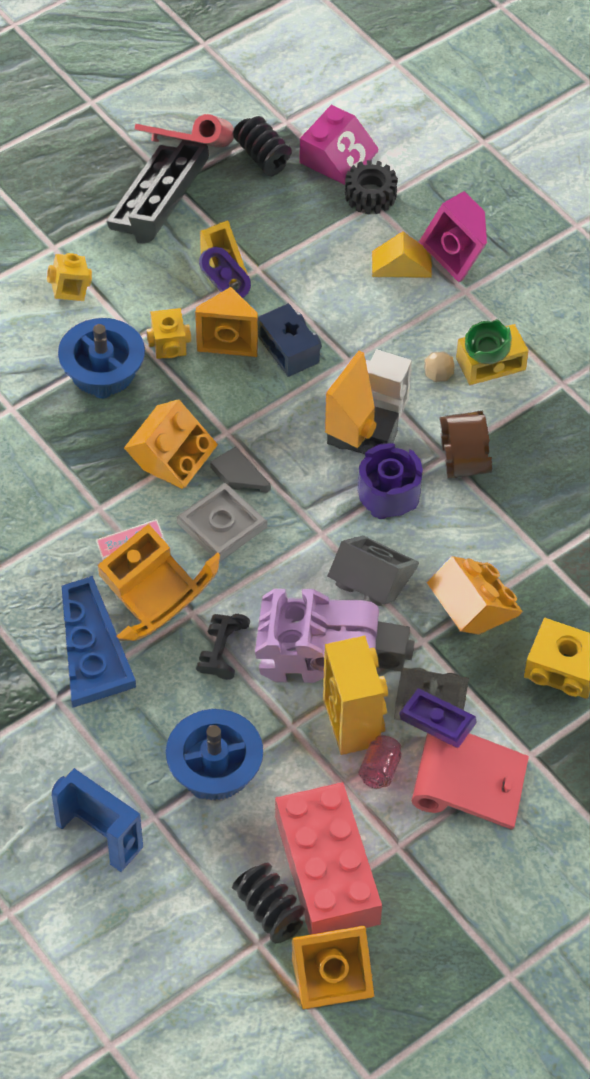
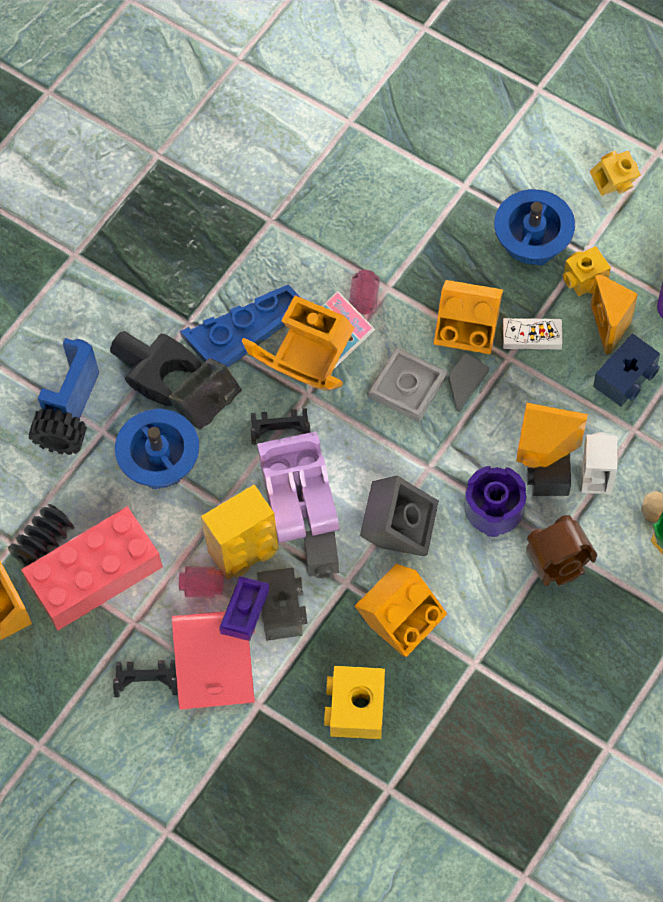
camera: 75 degrees right, 10 degrees up
(99, 522) = (364, 291): none -> clear pink brick
(99, 740) = (153, 363): none -> black connector
(149, 848) = (57, 431): none -> black tyre
(161, 692) = (205, 393): none -> clear smoke brick
(213, 401) = (532, 333): none -> white tile
(469, 827) = (124, 678): none -> black piece

